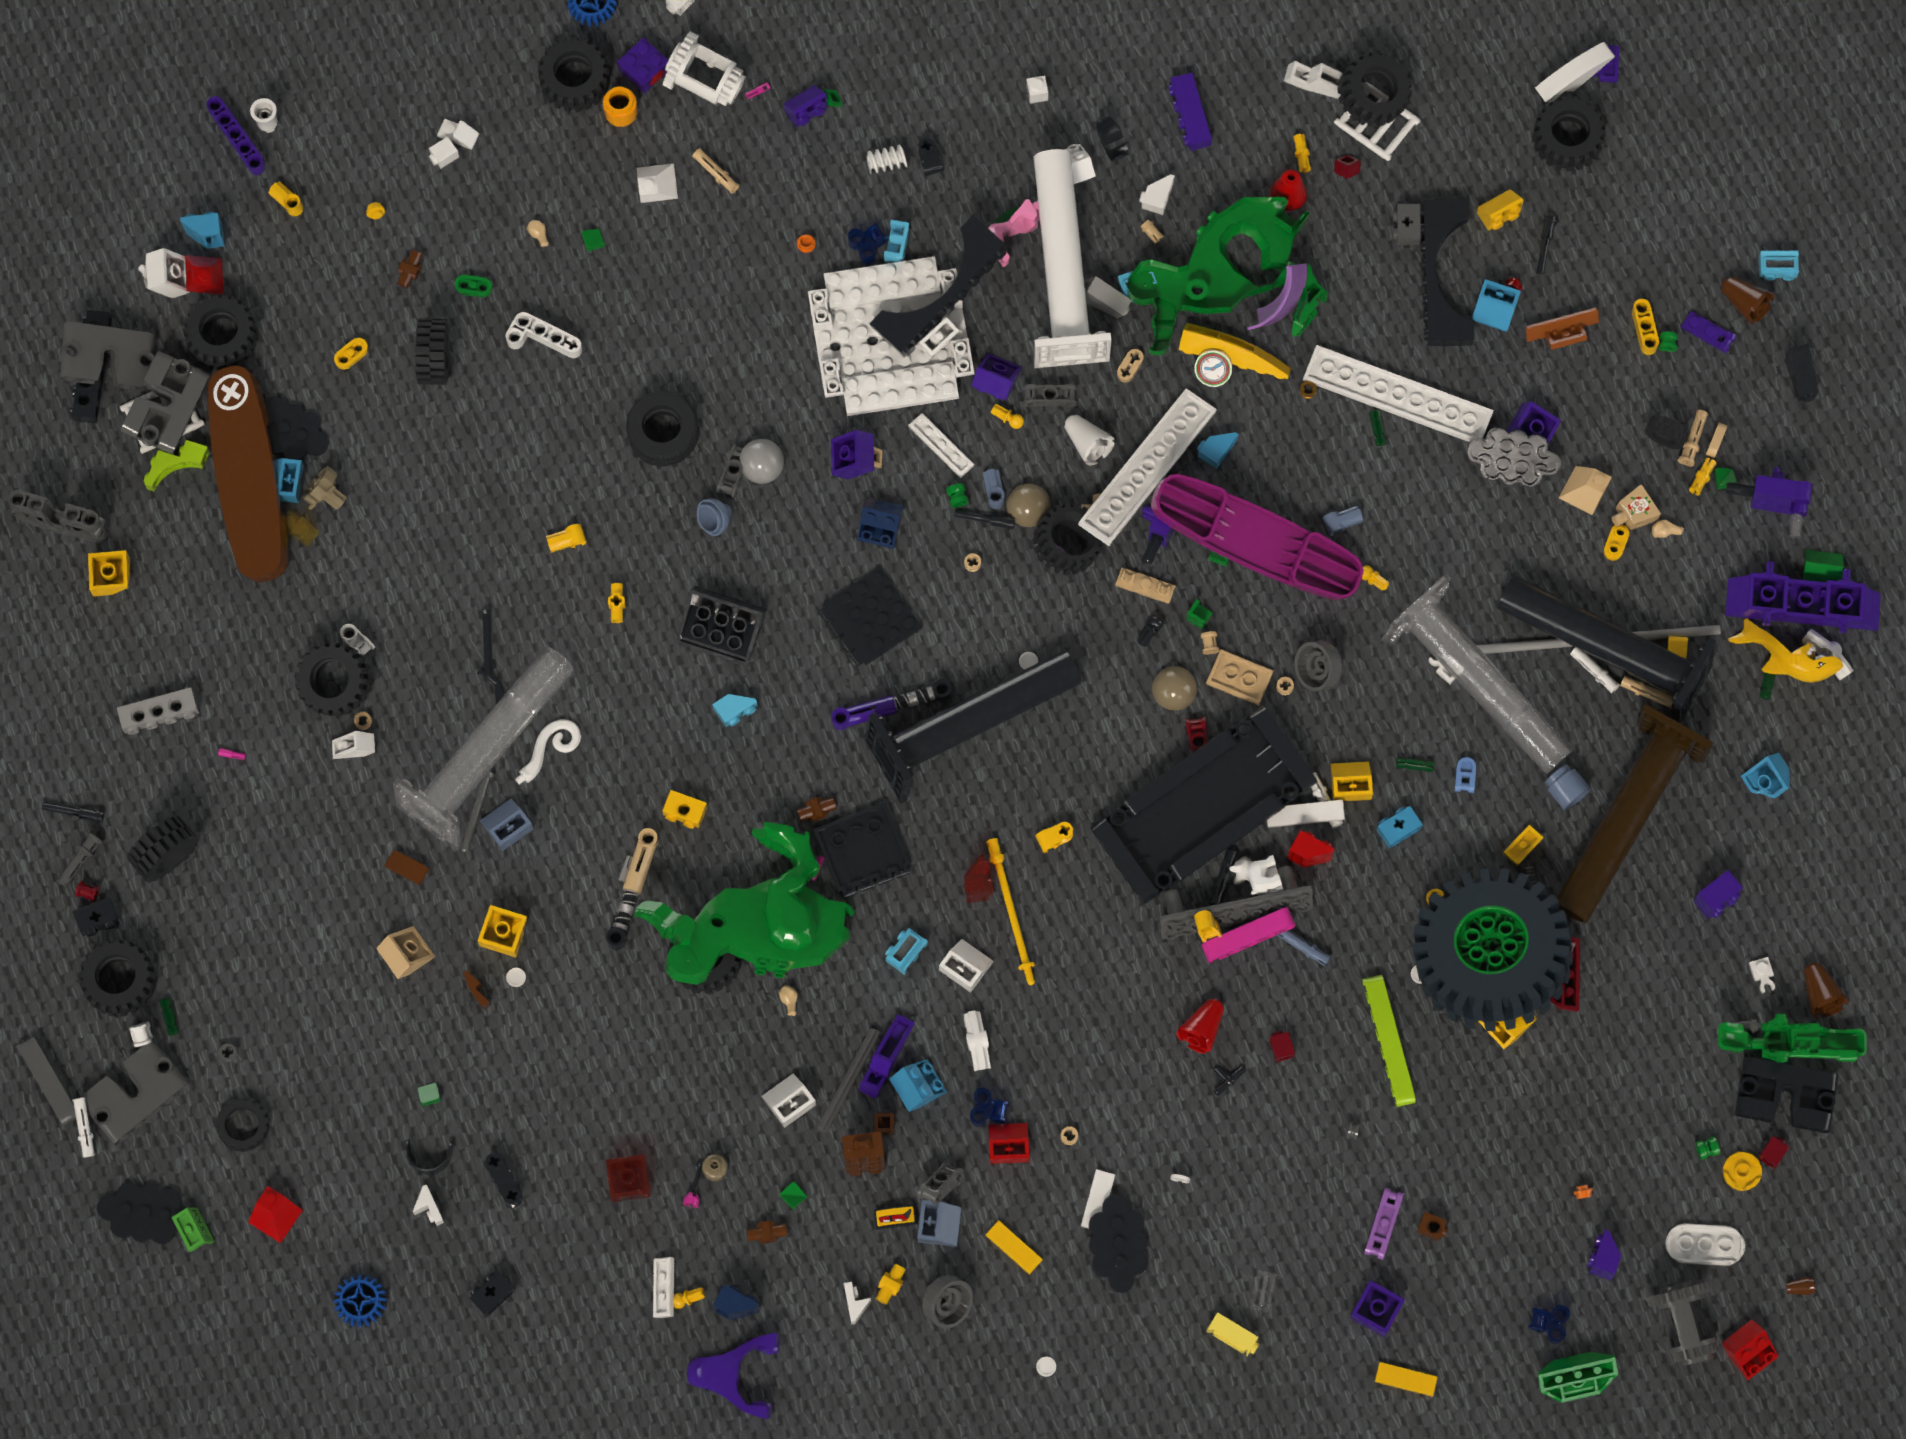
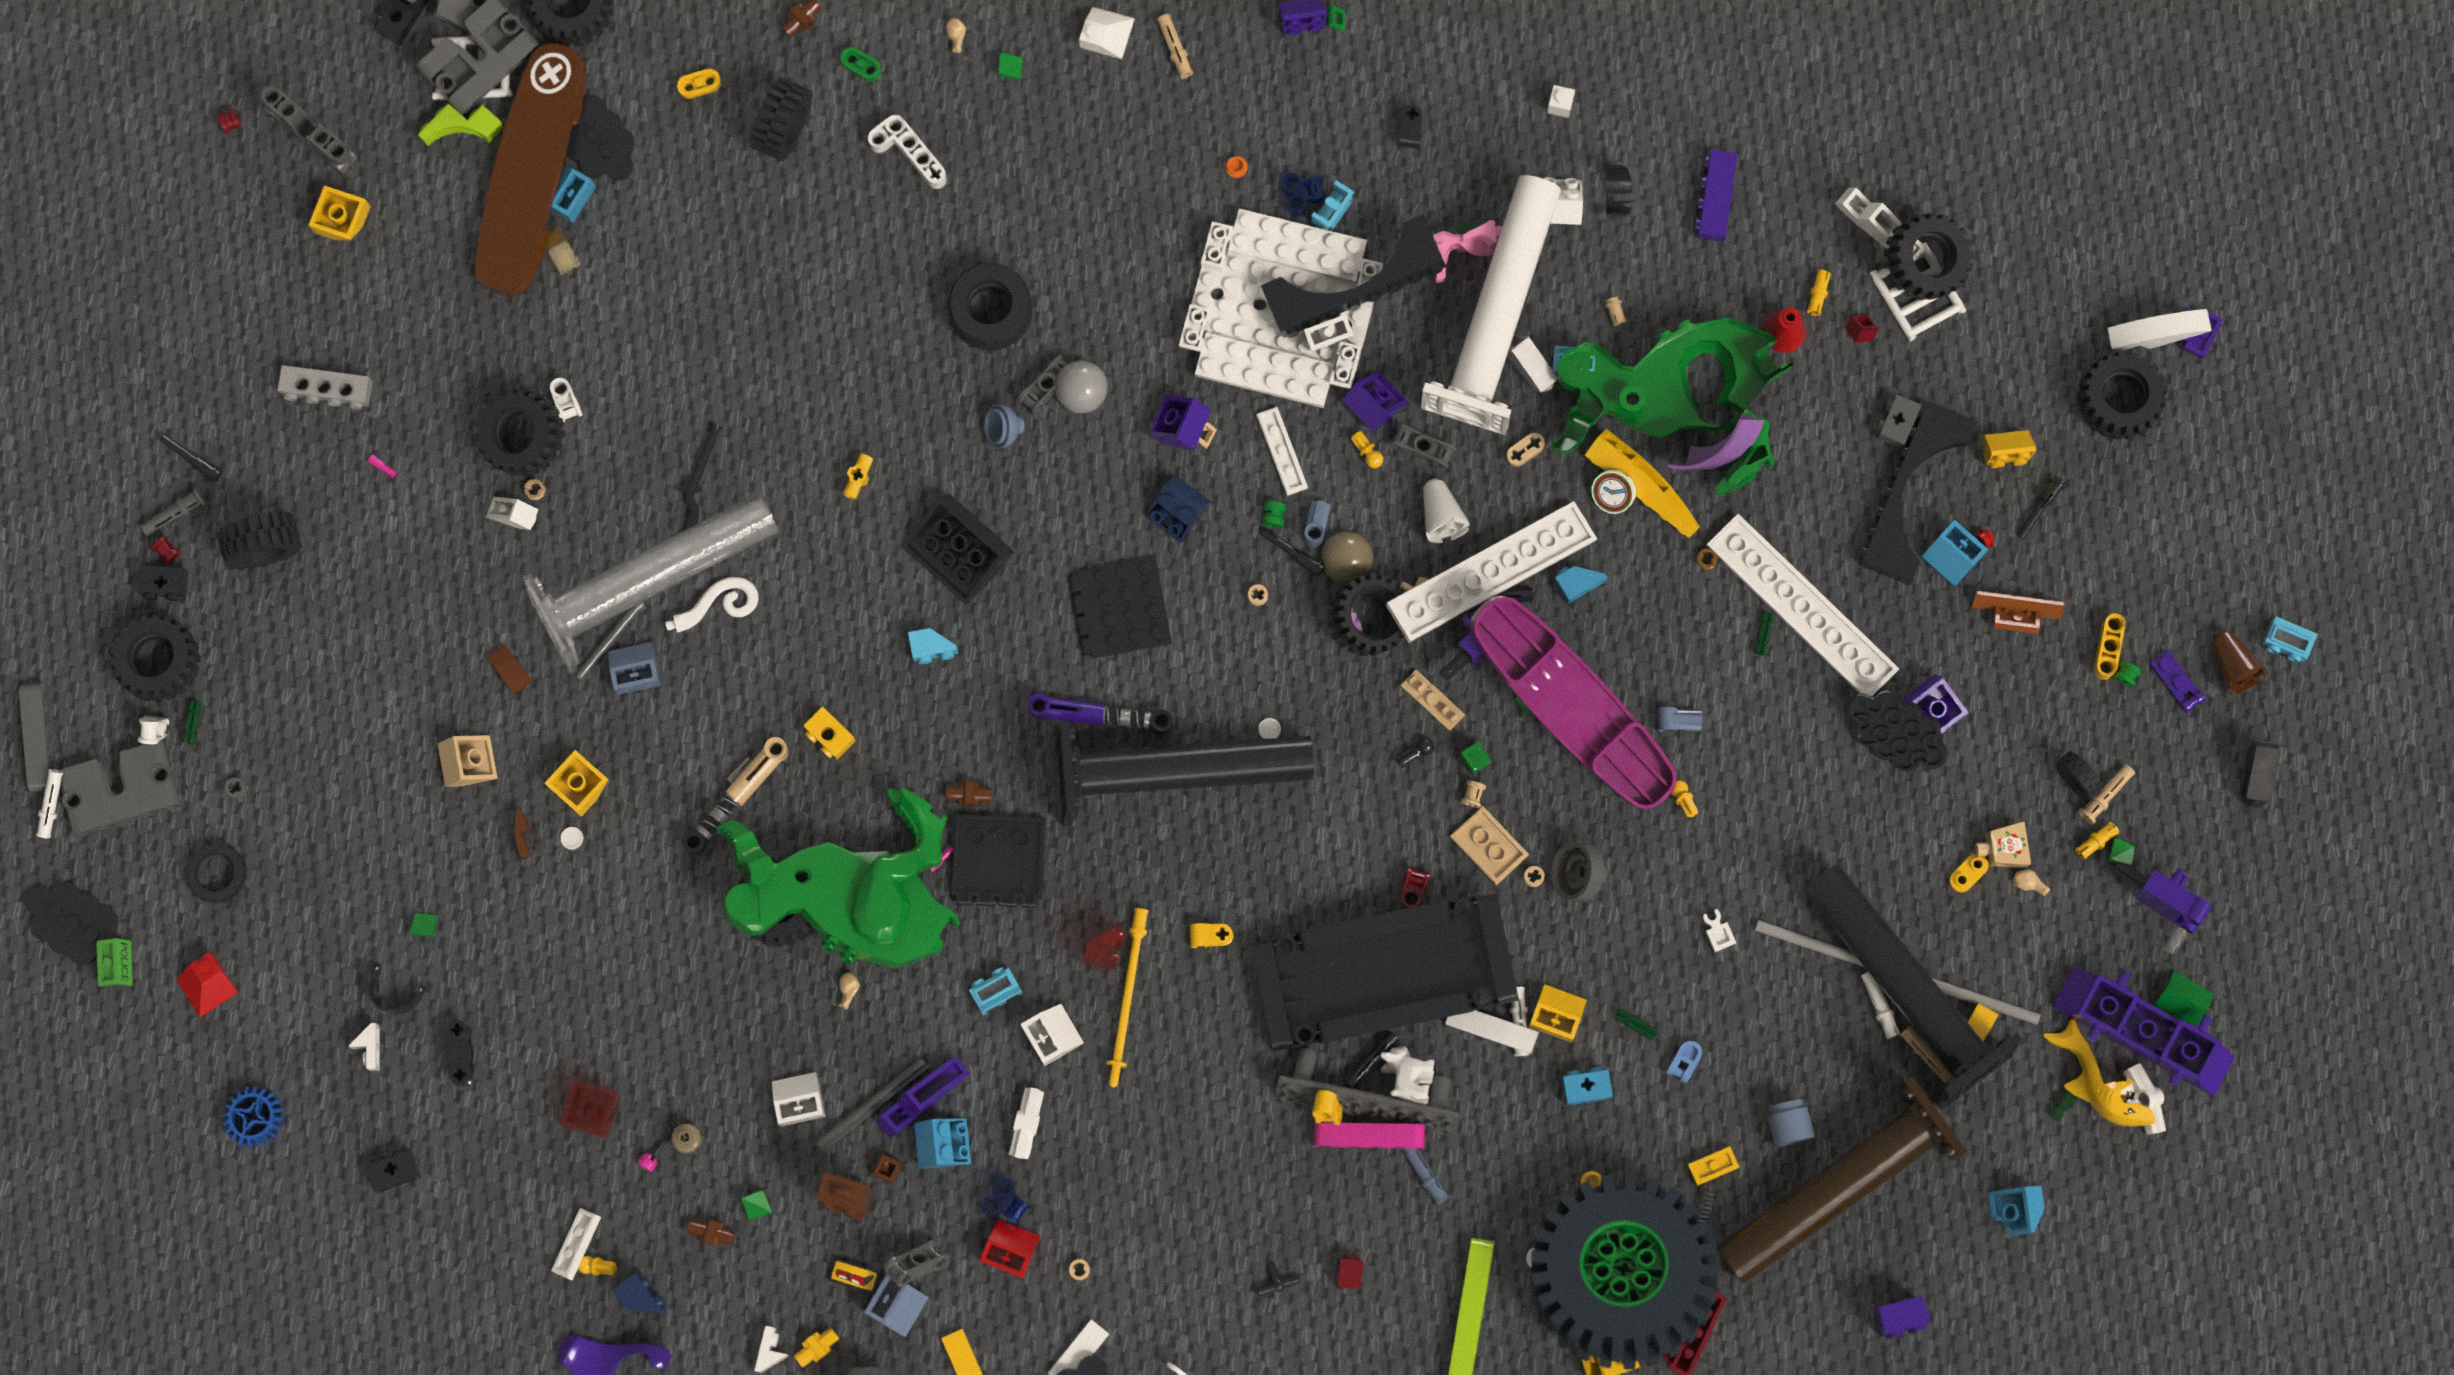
camera: 25 degrees right, 5 degrees up
(323, 488) = (602, 219): dark tan piece -> none
(570, 537) = (839, 383): yellow piece -> none
(886, 159) = (1363, 110): white piece -> none
(1157, 195) = (1639, 273): white slope -> none
(1174, 688) = (1413, 827): dark tan piece -> none
(1202, 1026) = (1275, 1213): red cone -> none
(1310, 851) = (1475, 1072): red slope -> none
(1480, 677) = (1749, 965): clear piece -> none
(1585, 488) = (1961, 799): tan slope -> none
(1716, 440) = (2130, 807): tan beam -> none

